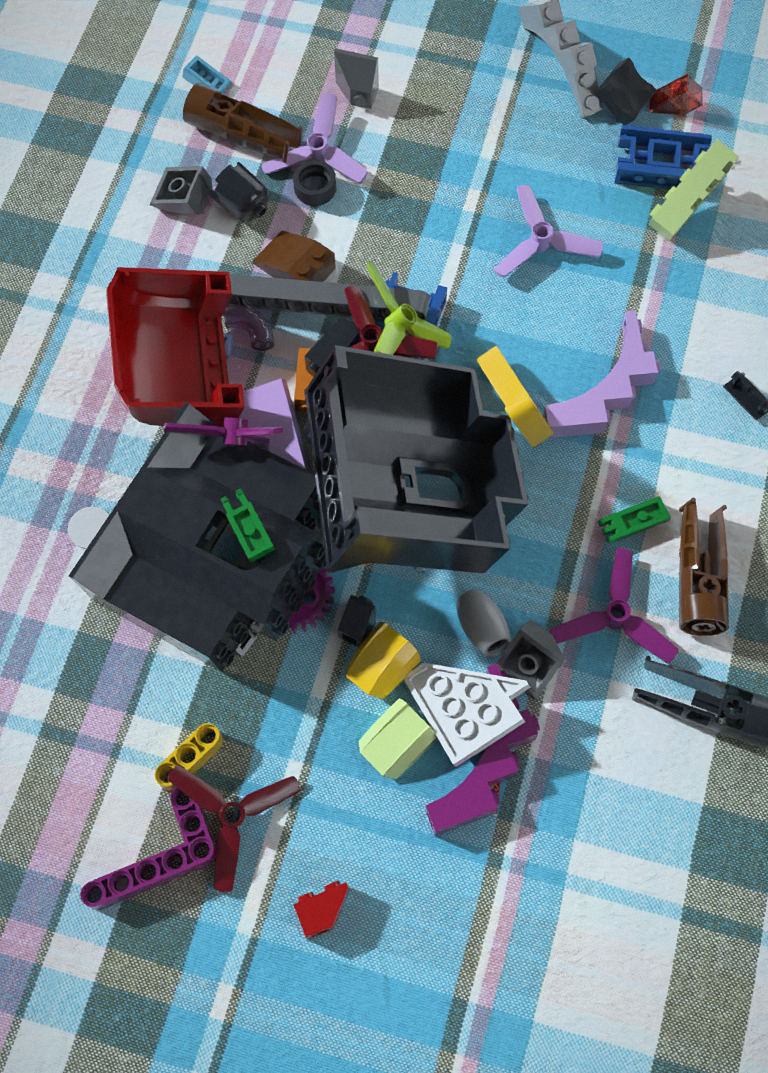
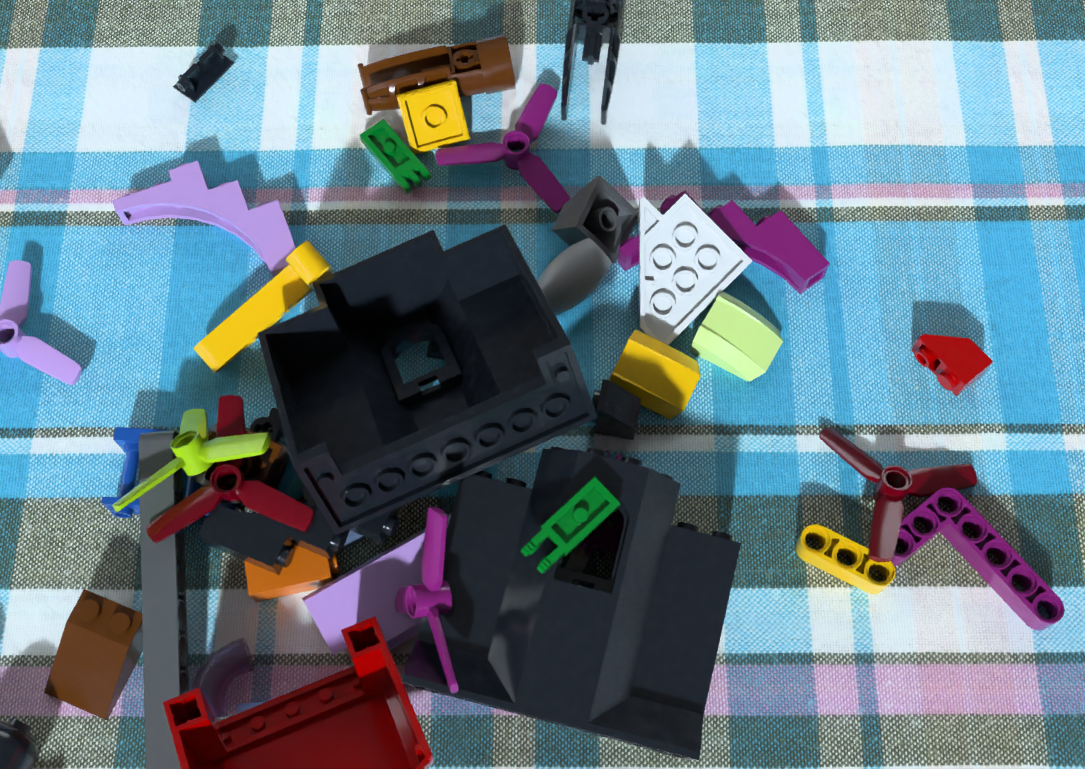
camera: 105 degrees left, 0 degrees up
(661, 553) = (433, 117): none -> yellow tile

